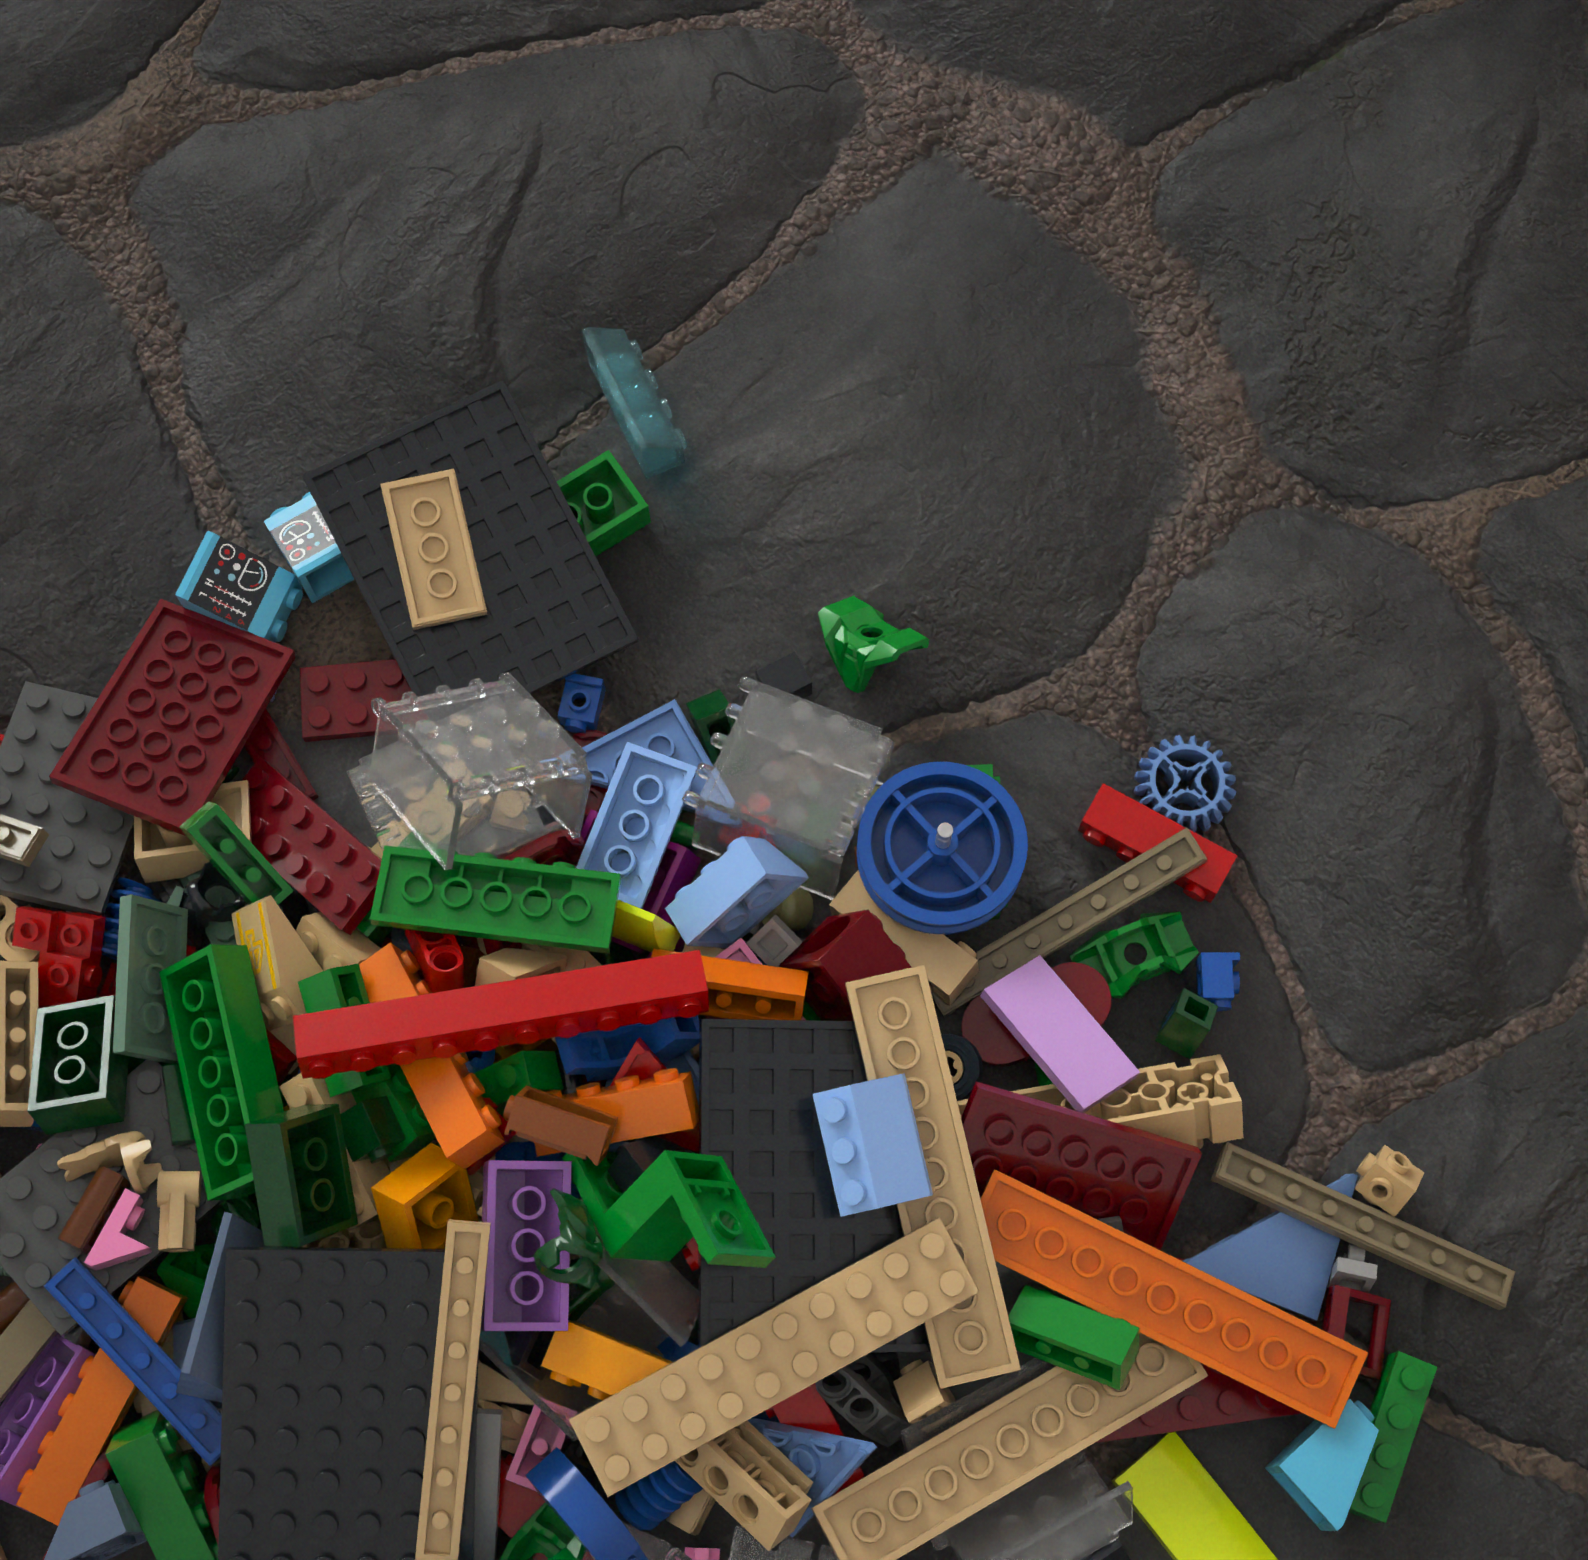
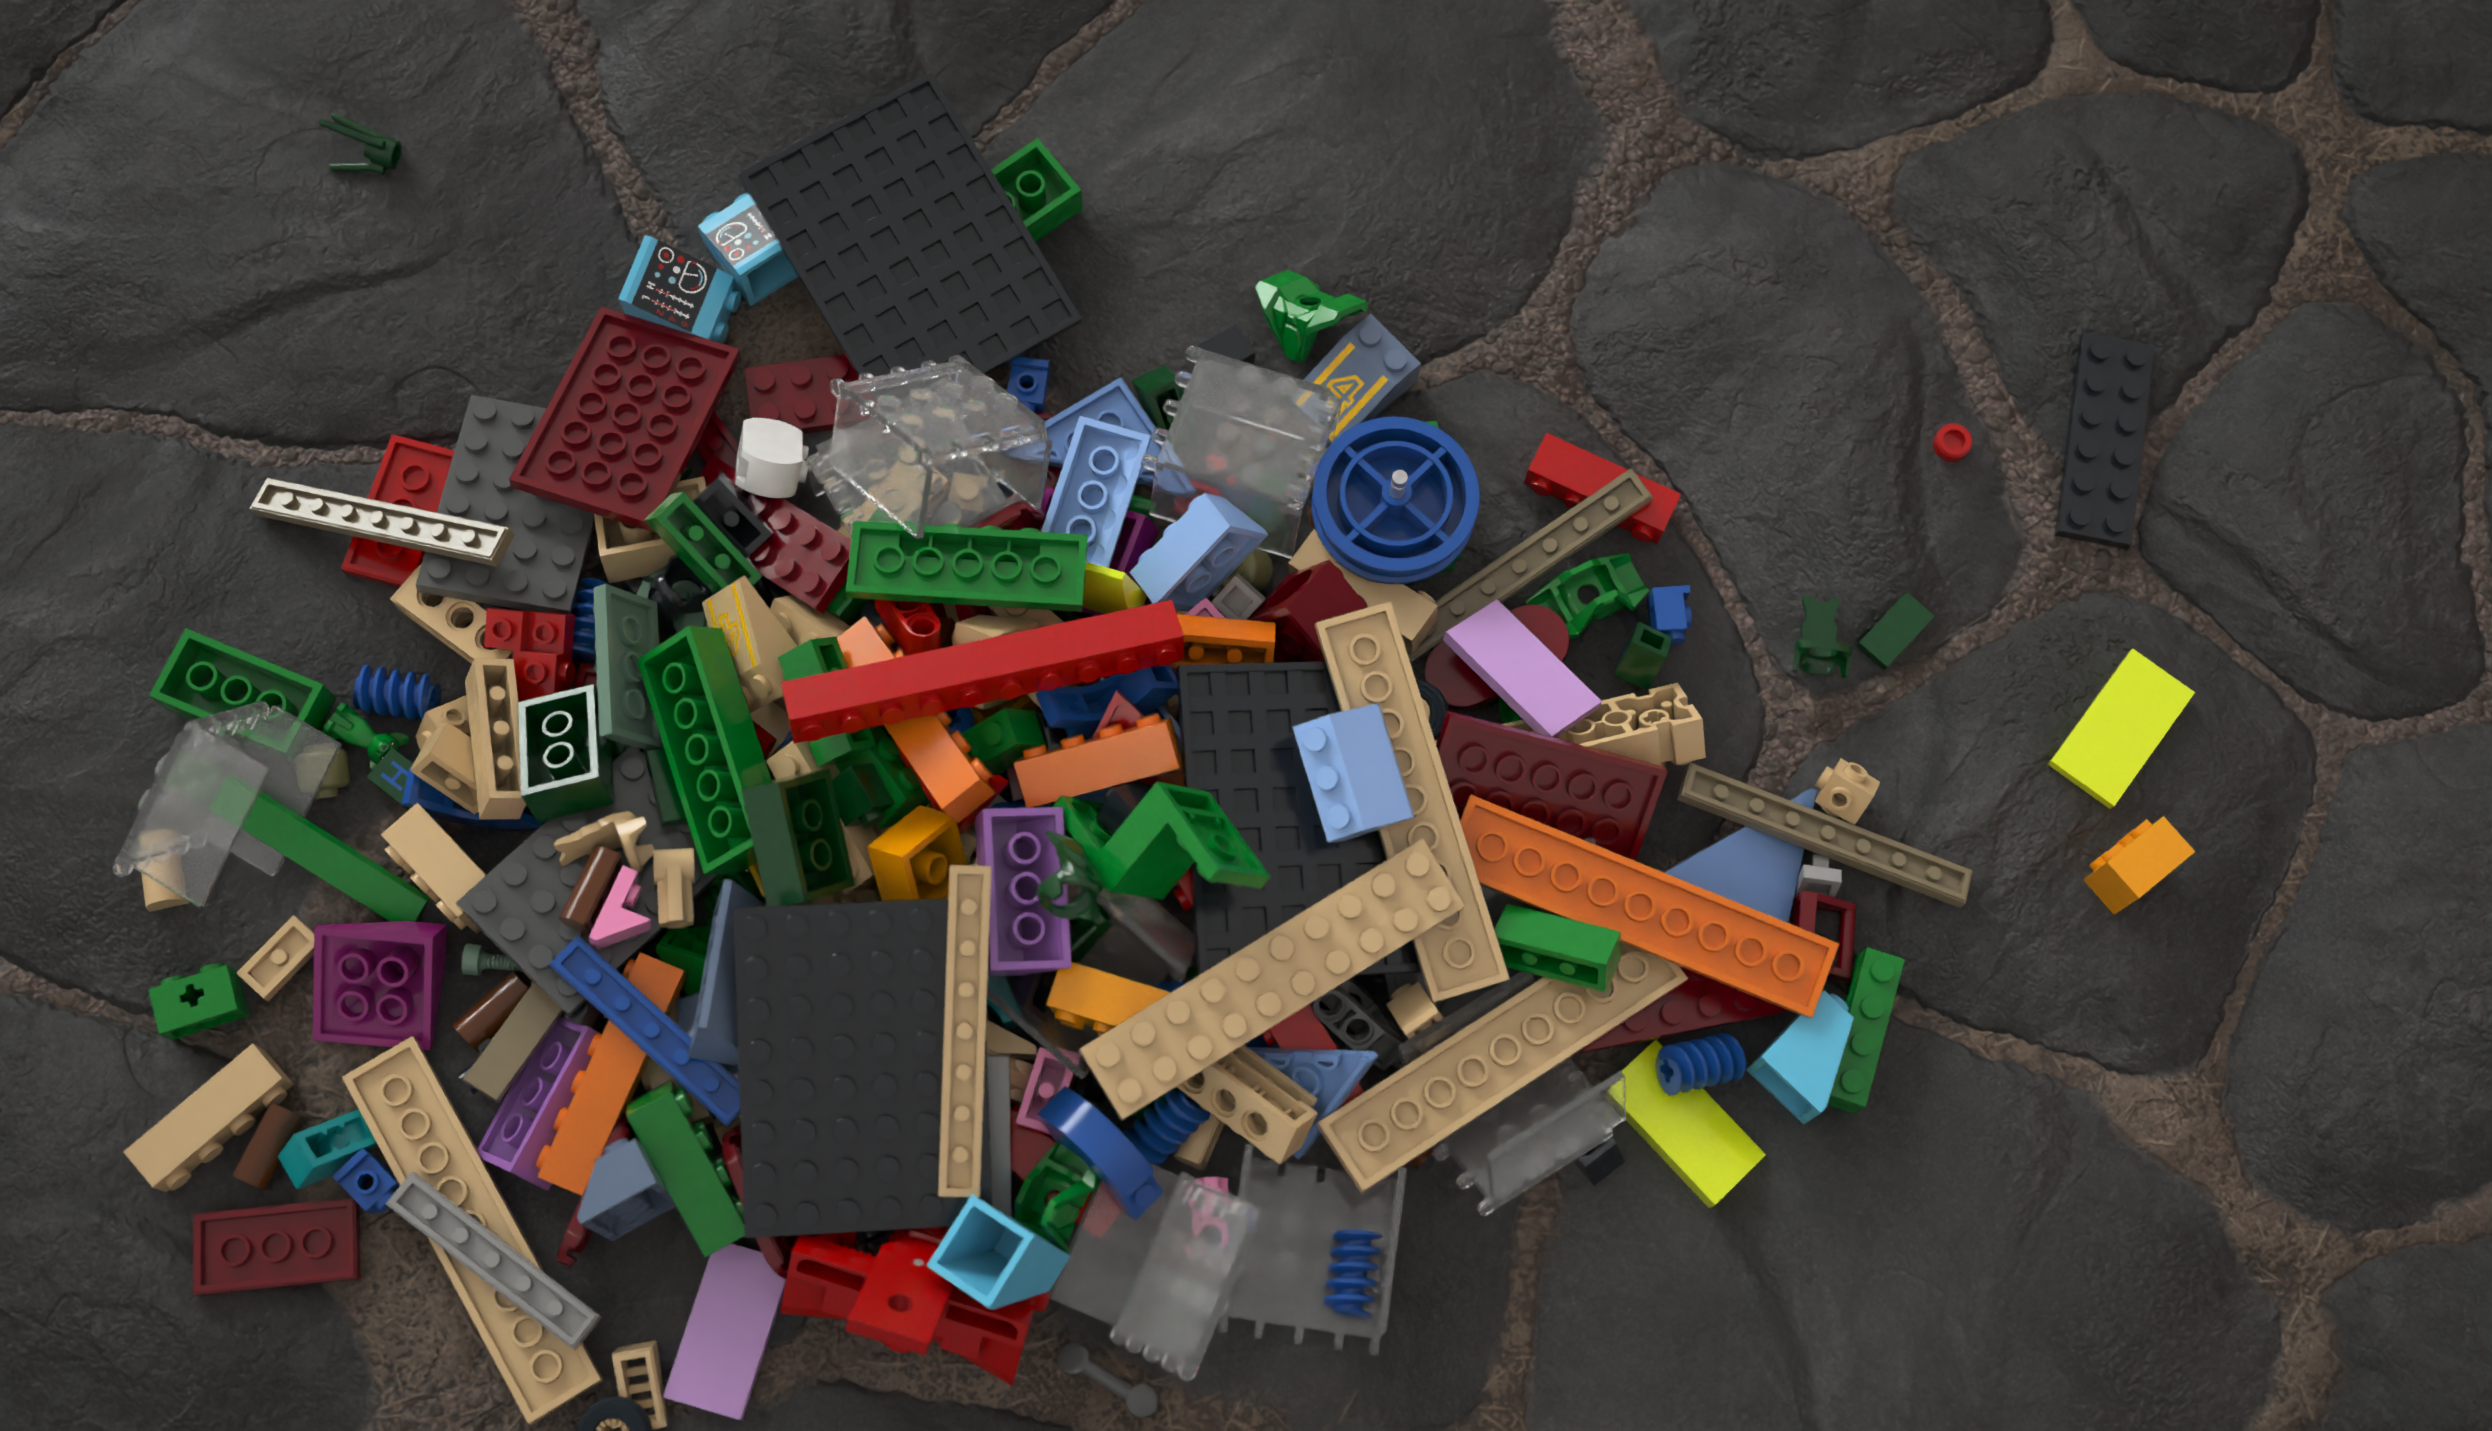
camera: 10 degrees left, 0 degrees up
(268, 825) = (733, 515): none -> black slope
(315, 766) = (770, 458): none -> white brick
(433, 549) = (874, 239): tan tile -> none
(560, 1124) = (1048, 772): dark orange window -> none
(634, 400) = (1056, 90): clear light blue slope -> none
(920, 711) = (1365, 372): none -> sand blue slope
(1174, 772) = (1606, 410): medium blue gear -> none
(1215, 1462) = (1700, 1063): none -> blue piece
(1368, 1024) = (1817, 647): none -> dark green hair
(1451, 1011) = (1895, 631): none -> dark green tile
(1523, 814) = (1952, 442): none -> red tile

